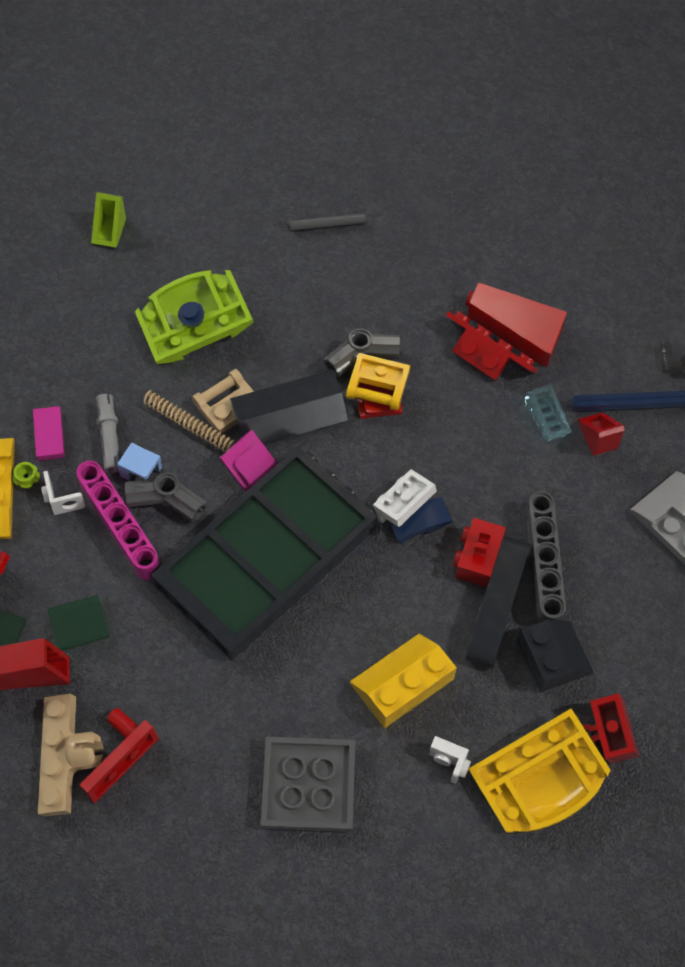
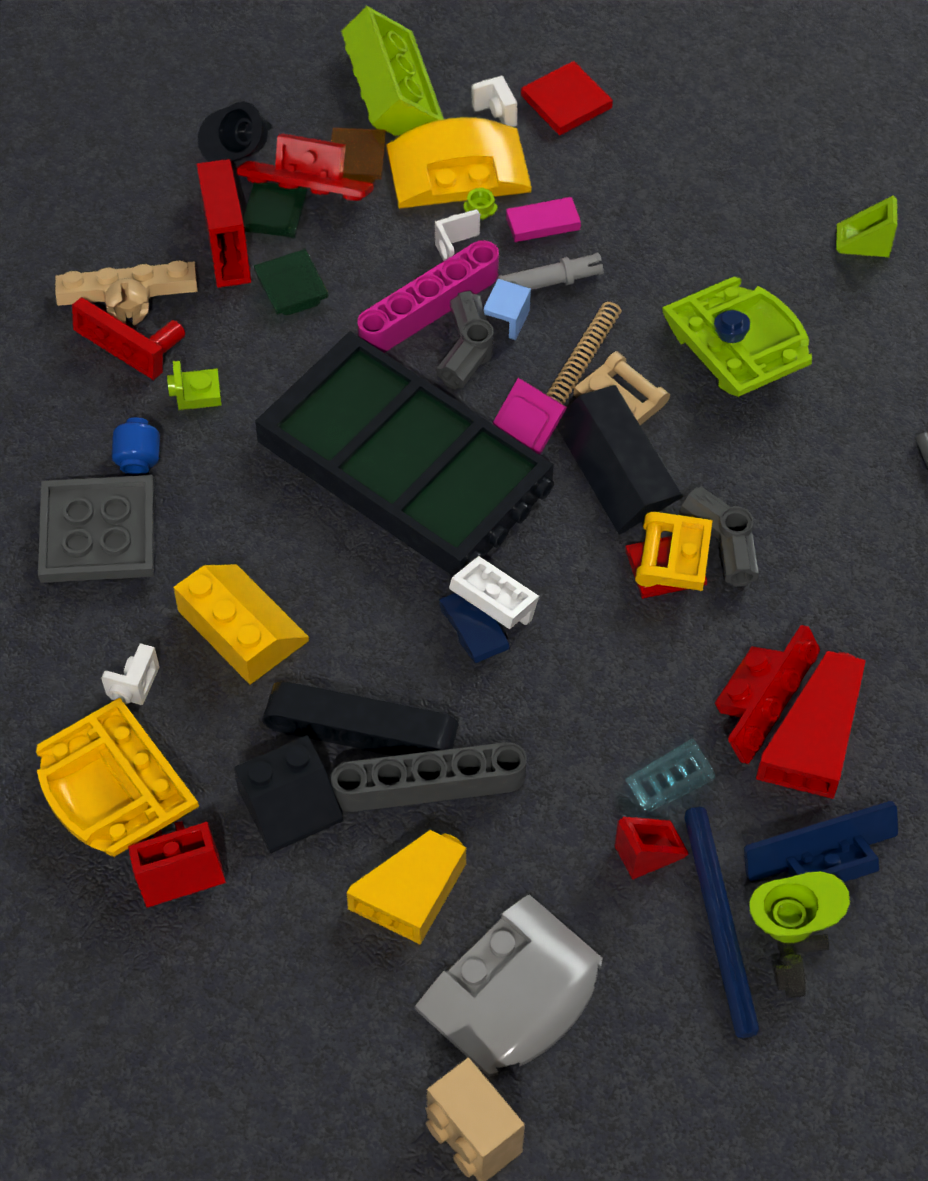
camera: 85 degrees right, 5 degrees down
(176, 703) = (194, 388): none -> lime bracket
(234, 749) = (135, 446): none -> blue head
(479, 552) = (432, 689): red brick -> none
(612, 331) = (831, 846): none -> dark blue bracket
(627, 576) = (410, 885): none -> yellow slope
(653, 347) = (799, 905): none -> lime piece

